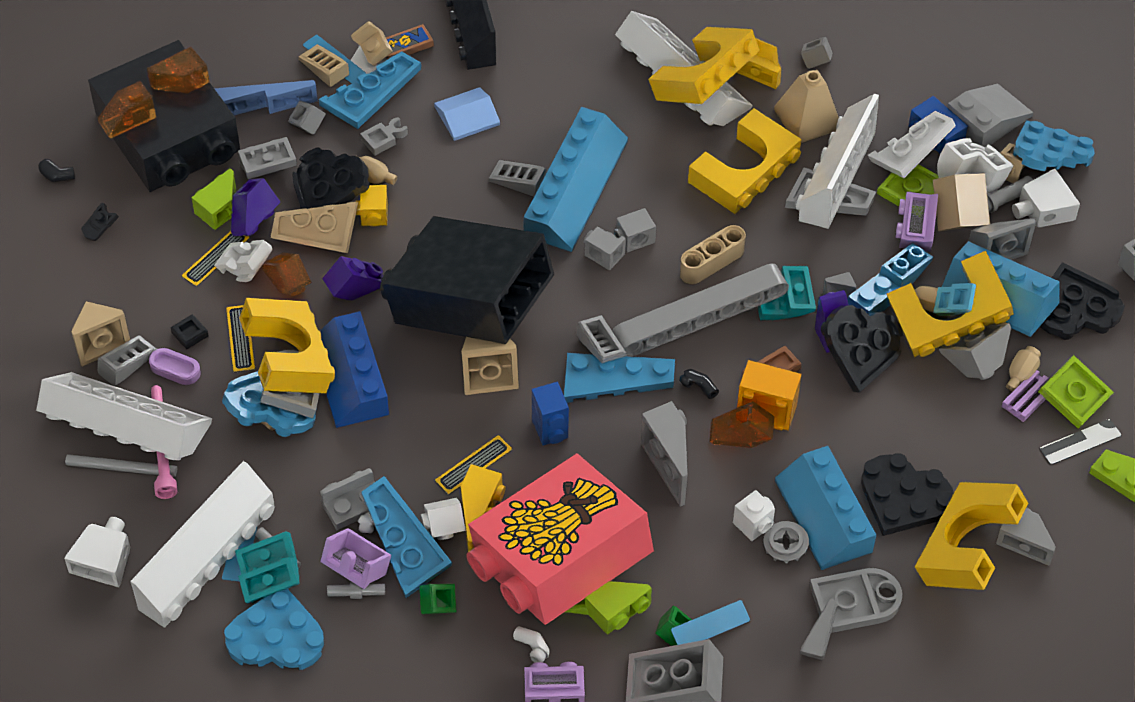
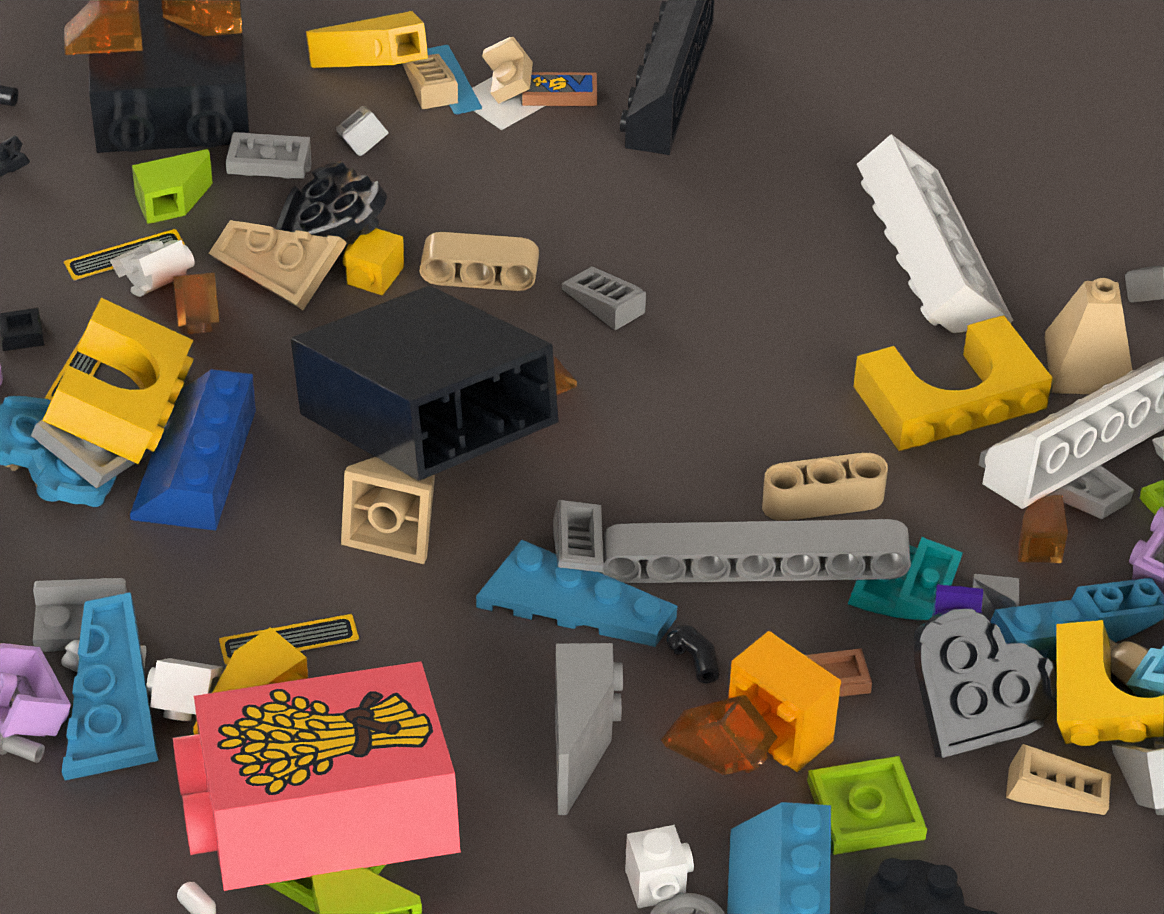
camera: 25 degrees right, 10 degrees down
(251, 206) = (207, 203): dark purple slope -> none
(273, 96) = (301, 83): medium blue slope -> none
(276, 52) = (369, 42): none -> yellow slope
(353, 278) = (267, 332): dark purple slope -> none
(372, 90) = (452, 133): dark azure wing -> none
(378, 171) = (404, 219): tan plant -> none
(382, 138) = (446, 185): light grey plate -> none
(434, 182) = (479, 261): none -> tan beam
(437, 598) = (105, 796): green slope -> none
(467, 113) = (586, 198): light blue slope -> none
(550, 413) = (432, 603): blue brick -> none
(575, 179) = (679, 323): dark azure slope -> none
(604, 247) = (668, 423): light grey brick -> none
(637, 229) = (727, 416): light grey brick -> none
(724, 53) = (989, 226): yellow arch -> none
(763, 66) = (1049, 263): yellow slope -> none
(838, 430) = (868, 804): none -> lime tile
(843, 236) = (1043, 531): none -> clear orange brick
(909, 389) = (1030, 782): none -> tan slope

